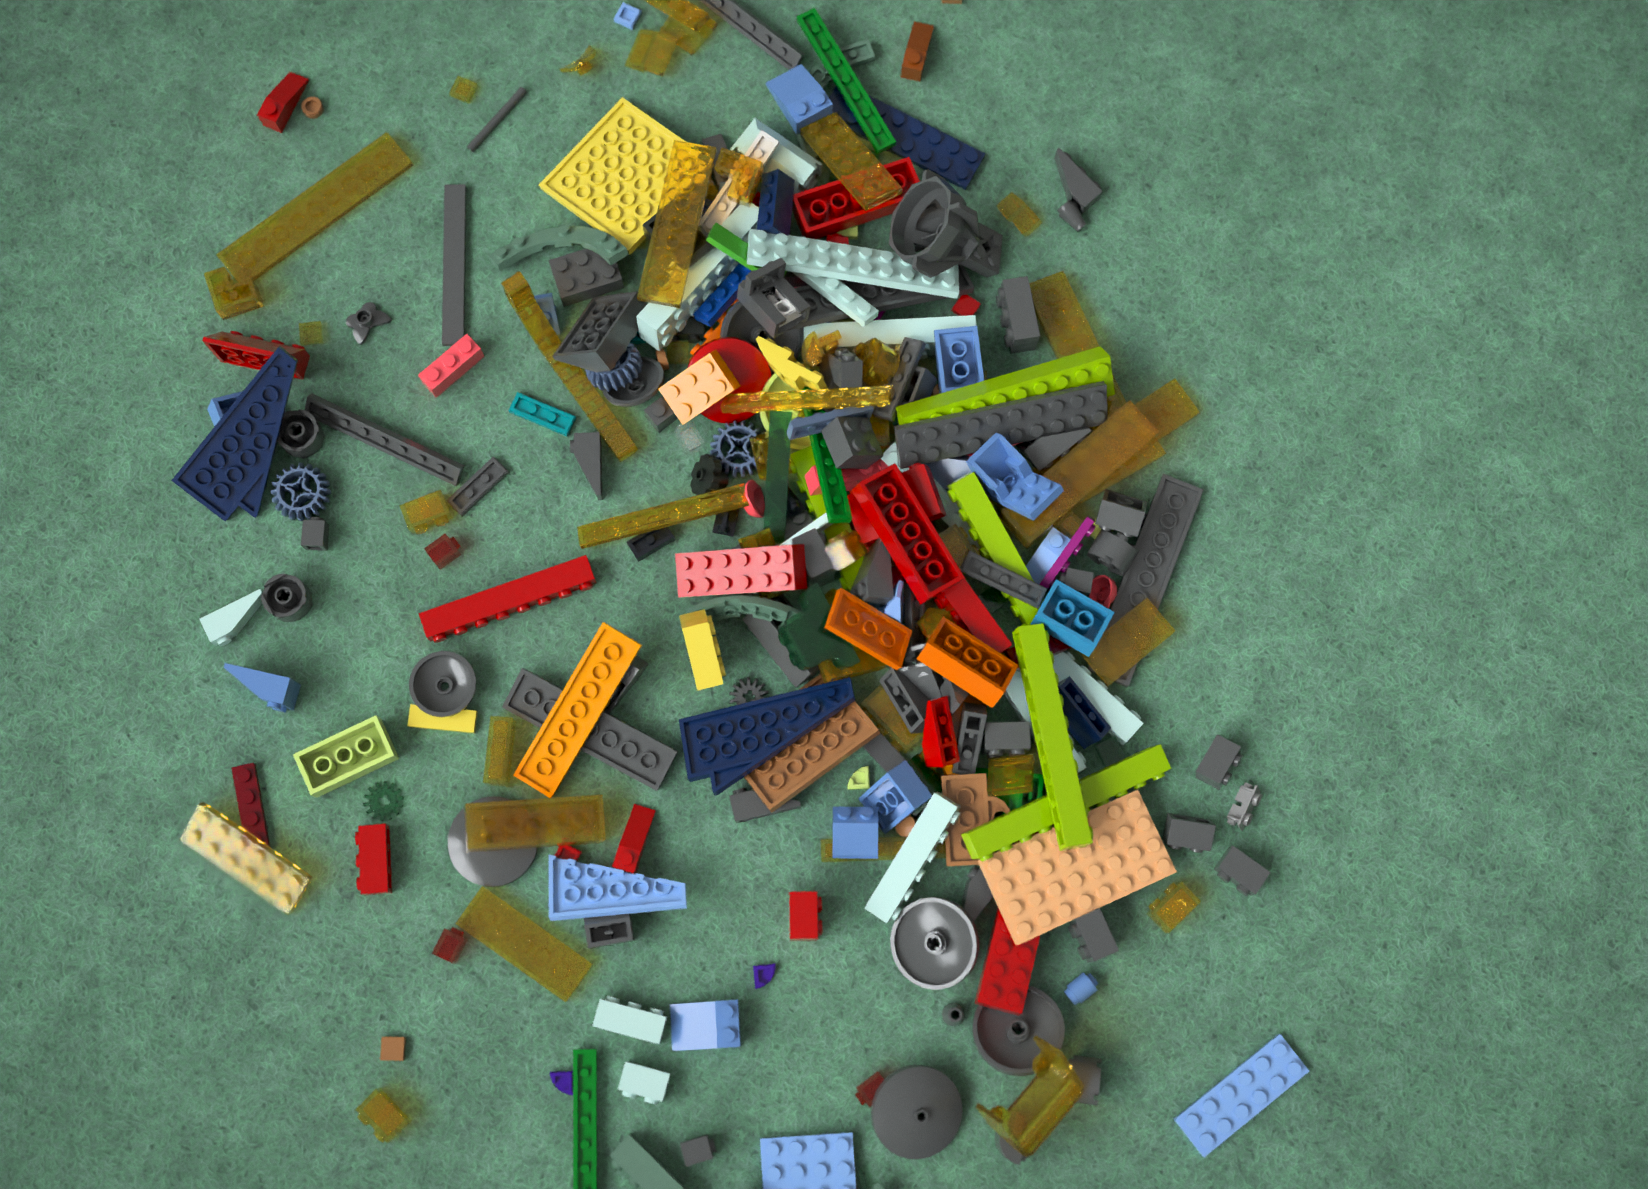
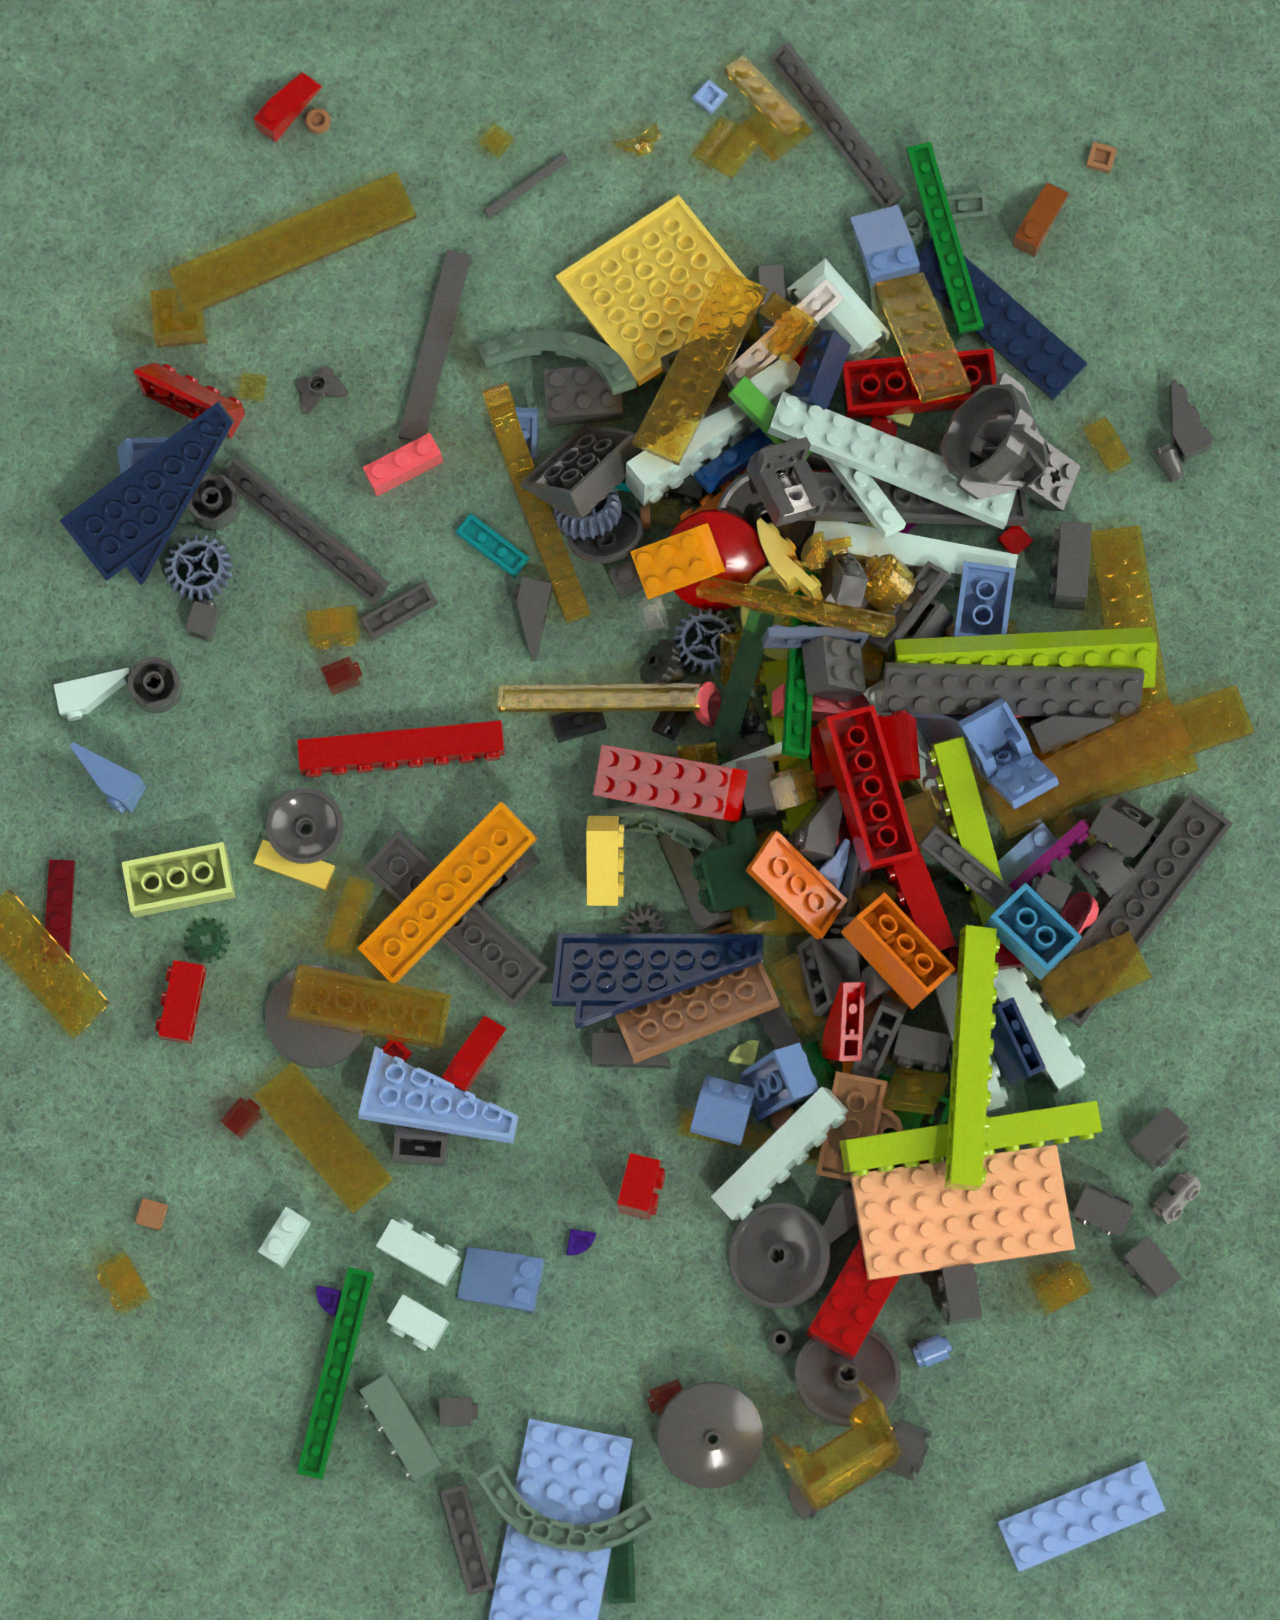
camera: 25 degrees right, 0 degrees up
(511, 1039) = (284, 1237): none -> light aqua brick

